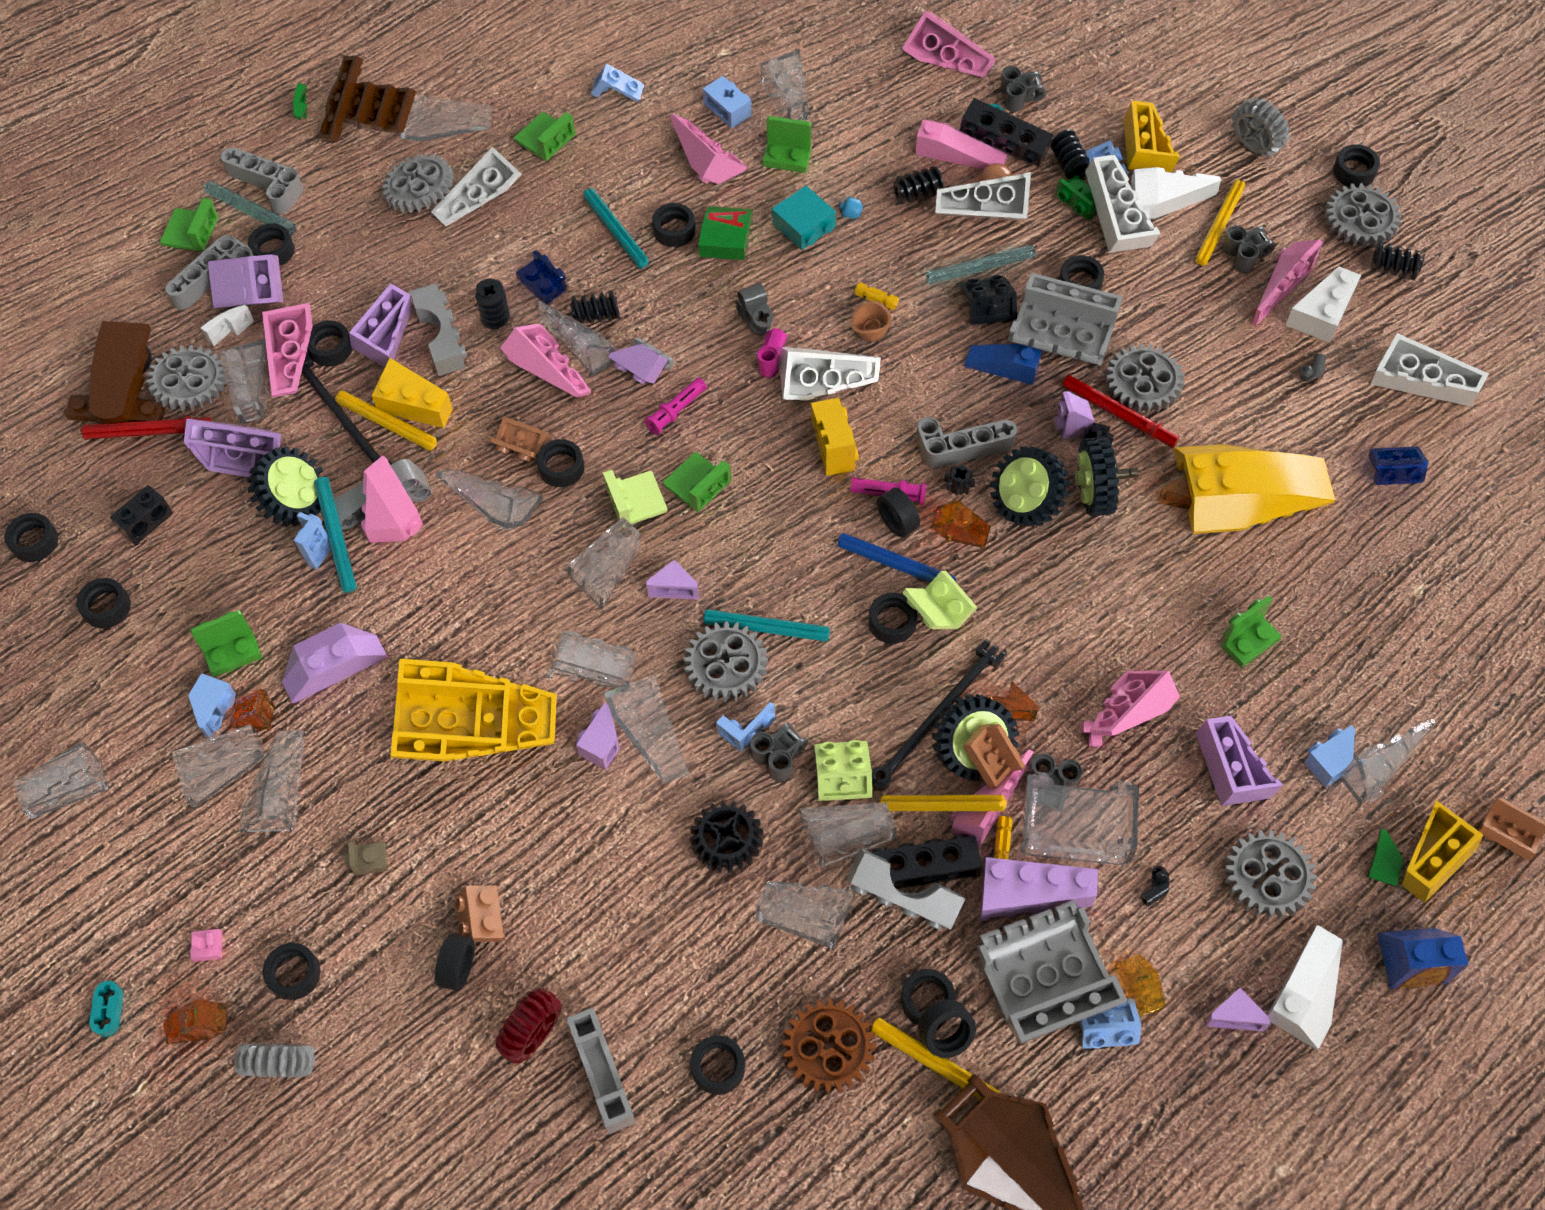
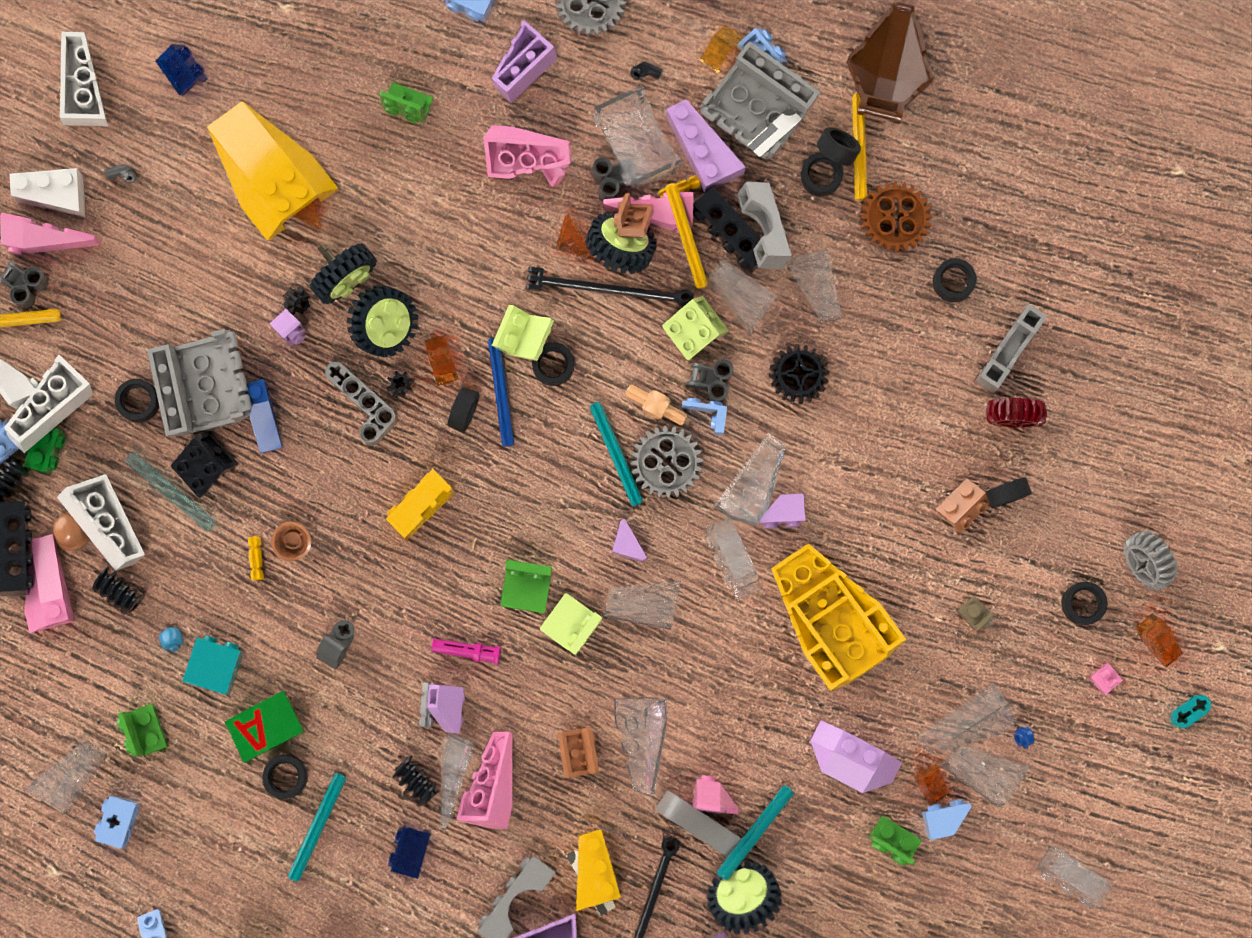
camera: 130 degrees left, 20 degrees up
(219, 824) = (1024, 737): none -> blue plate
(312, 540) = (777, 842): light blue bracket -> none
(386, 420) = (626, 880): yellow axle -> none
(492, 303) = (463, 873): black piece -> none
(554, 448) = (561, 705): black tyre -> none
(705, 154) = (192, 797): bright pink wedge -> none
(770, 353) = (366, 607): dark pink piece -> none
(789, 685) = (656, 404): none -> light nougat axle
(819, 372) = (365, 560): white wedge -> none
(875, 487) = (437, 423): dark pink pin -> none
(1004, 967) = (774, 132): none -> white sticker
(1126, 414) = (256, 299): red axle -> none
(1145, 372) = (195, 288): light grey gear -> none

